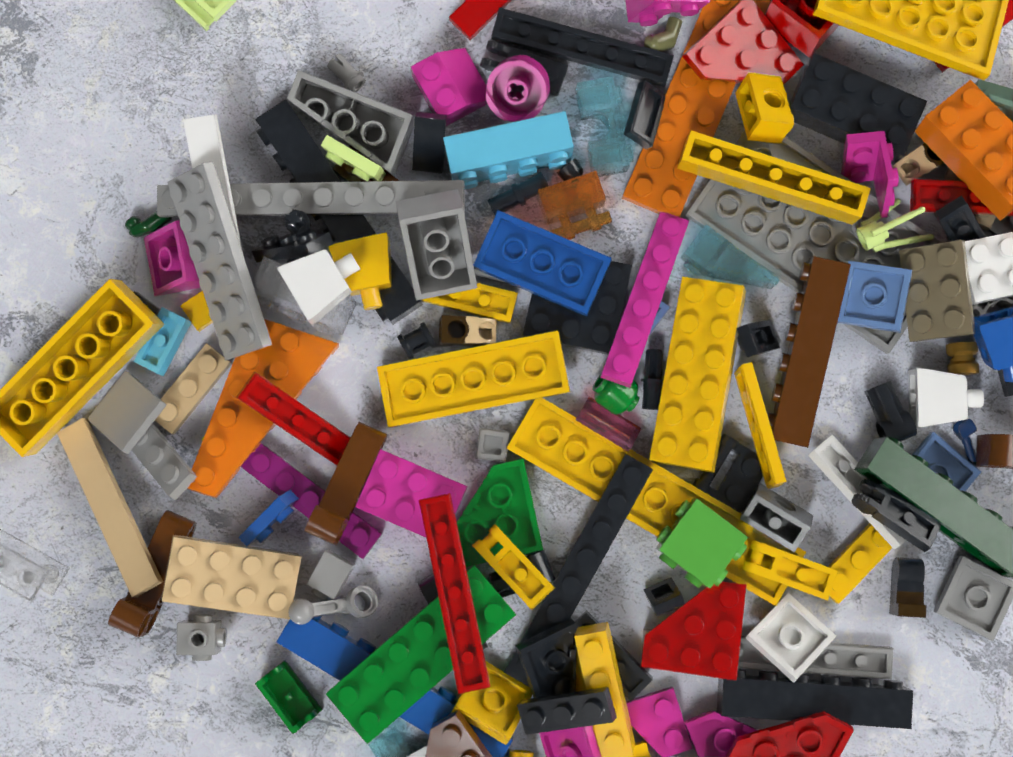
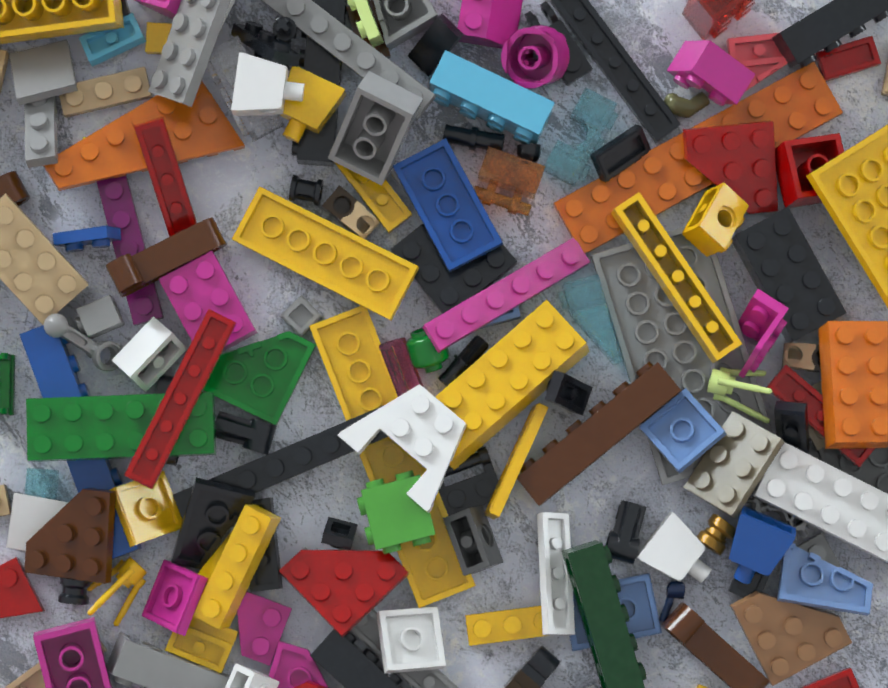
camera: 35 degrees right, 0 degrees up
(392, 573) = (149, 354): none -> white brick
(514, 568) = (241, 419): yellow plate -> none
(567, 710) = (195, 556): black plate -> none
(668, 460) = (421, 429): none -> white wing
(791, 570) = (451, 588): yellow plate -> none
(897, 514) = (564, 608): black hinge -> none

